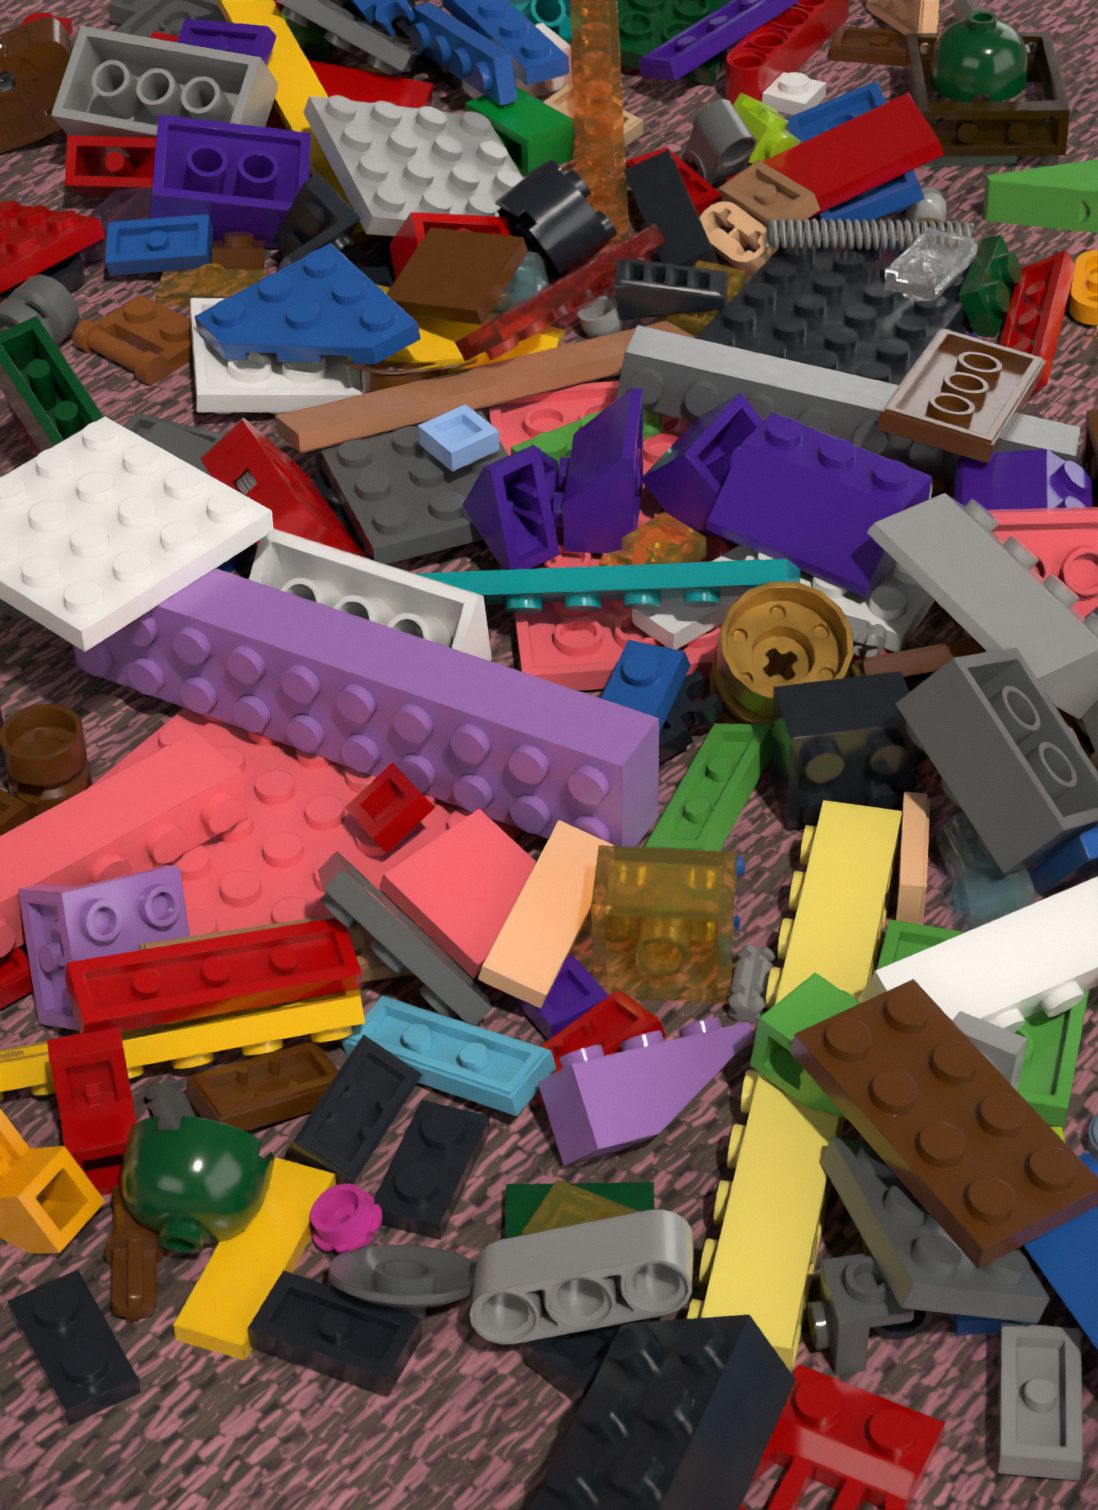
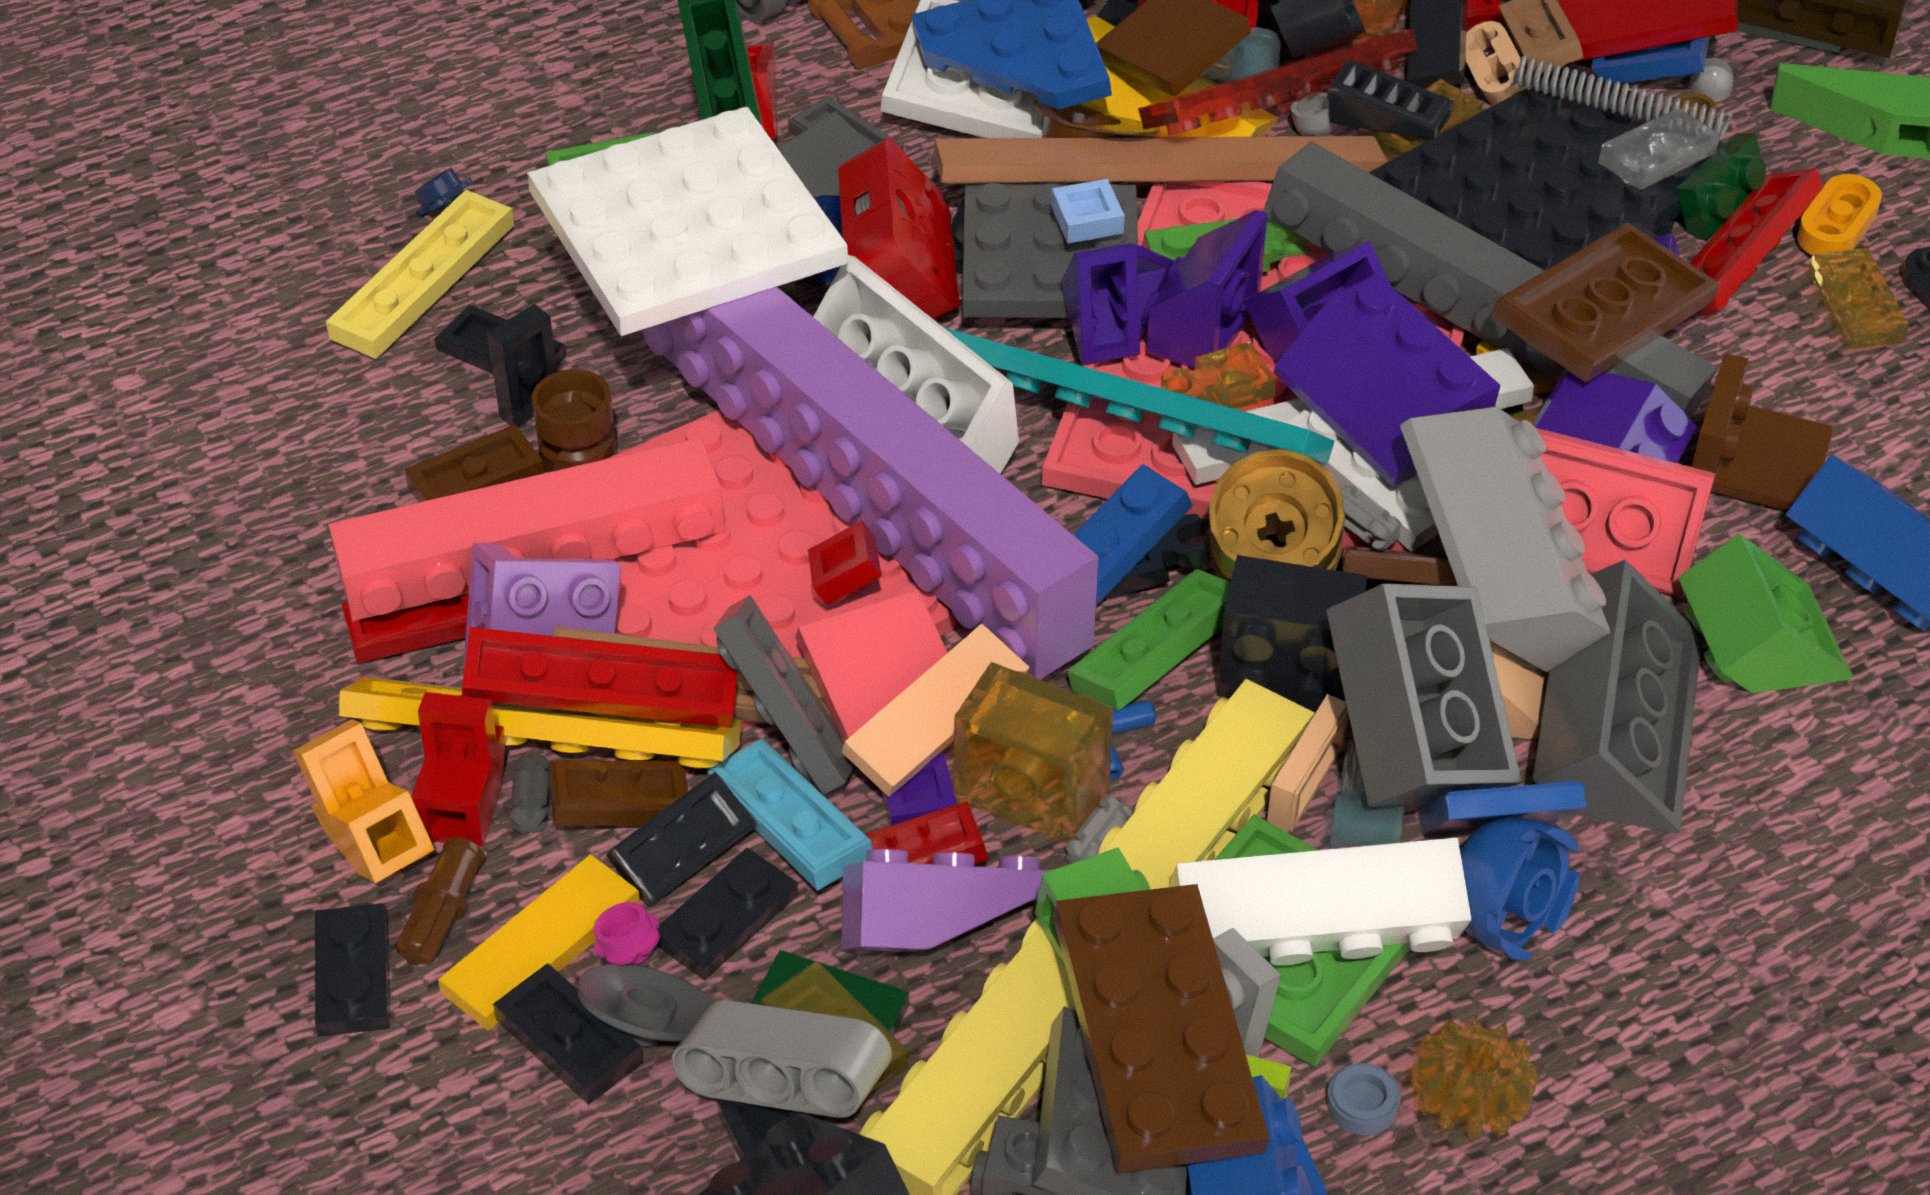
camera: 20 degrees right, 5 degrees up
(193, 1181) = (503, 860): dark green cylinder -> none

